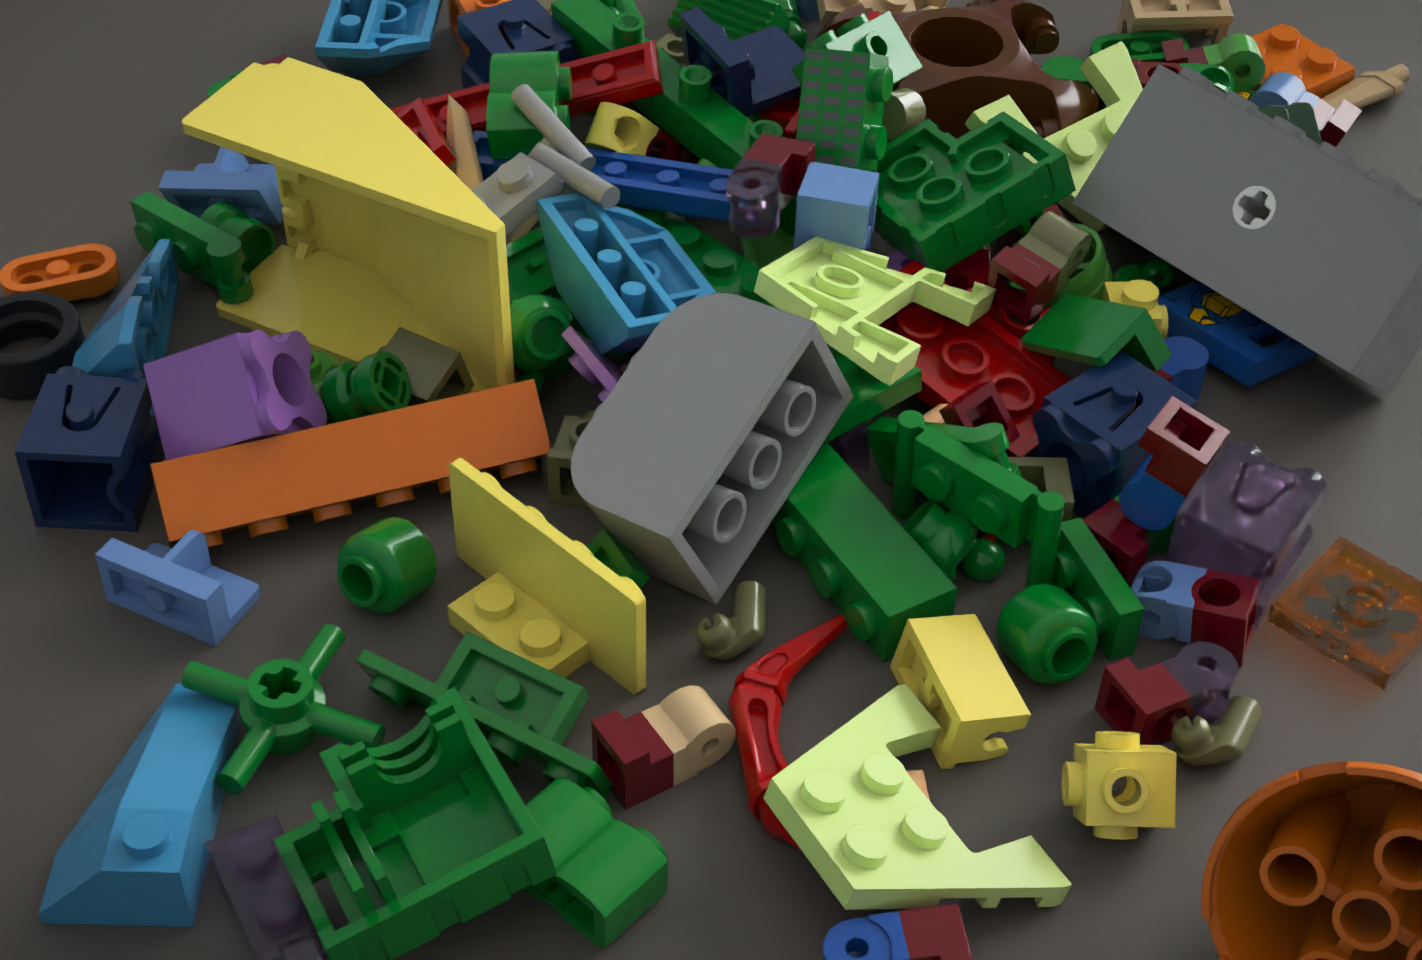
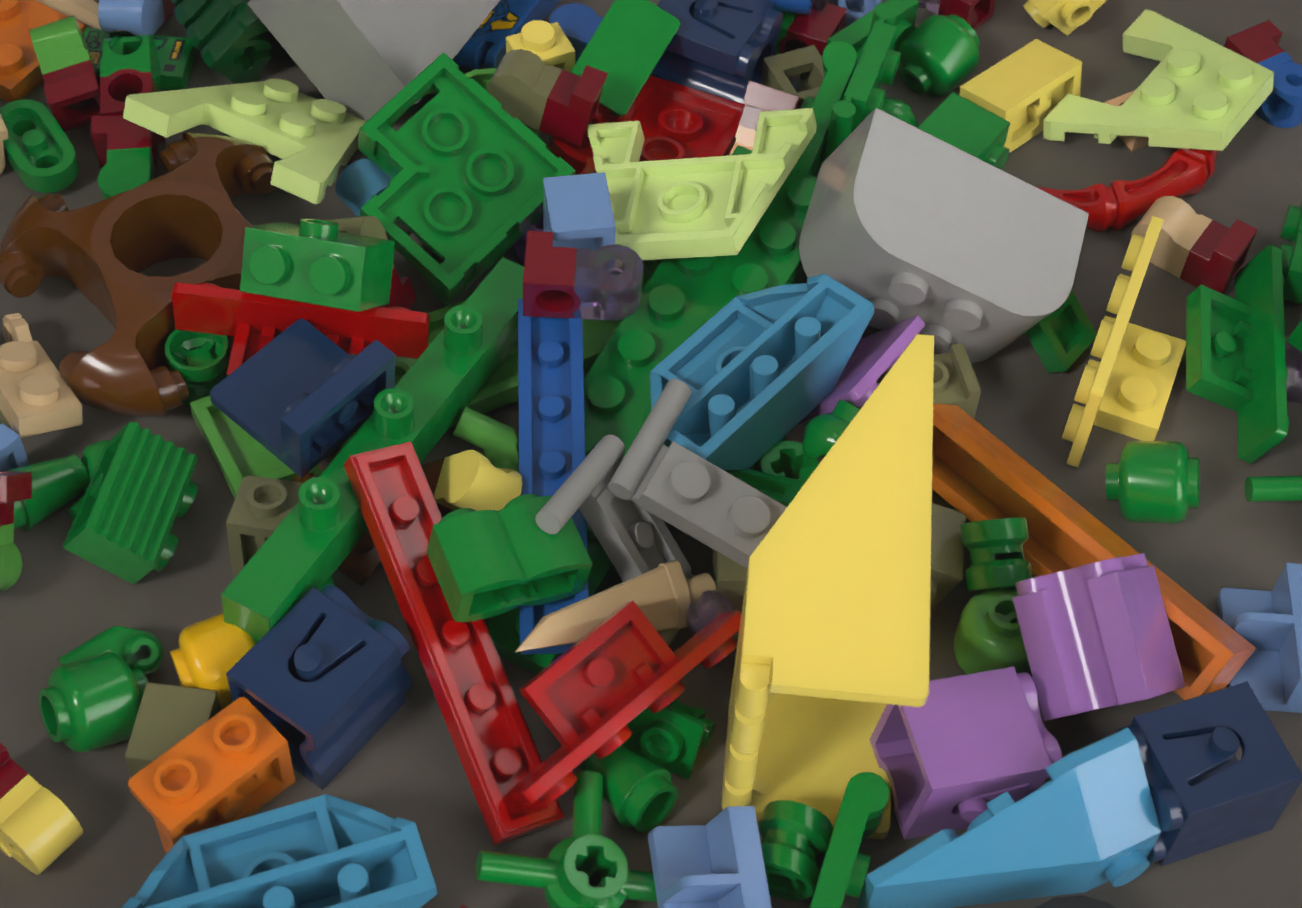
camera: 115 degrees left, 10 degrees up
(216, 295) = (963, 749): none -> medium lavender piece
(845, 106) = (436, 237): green brick -> none

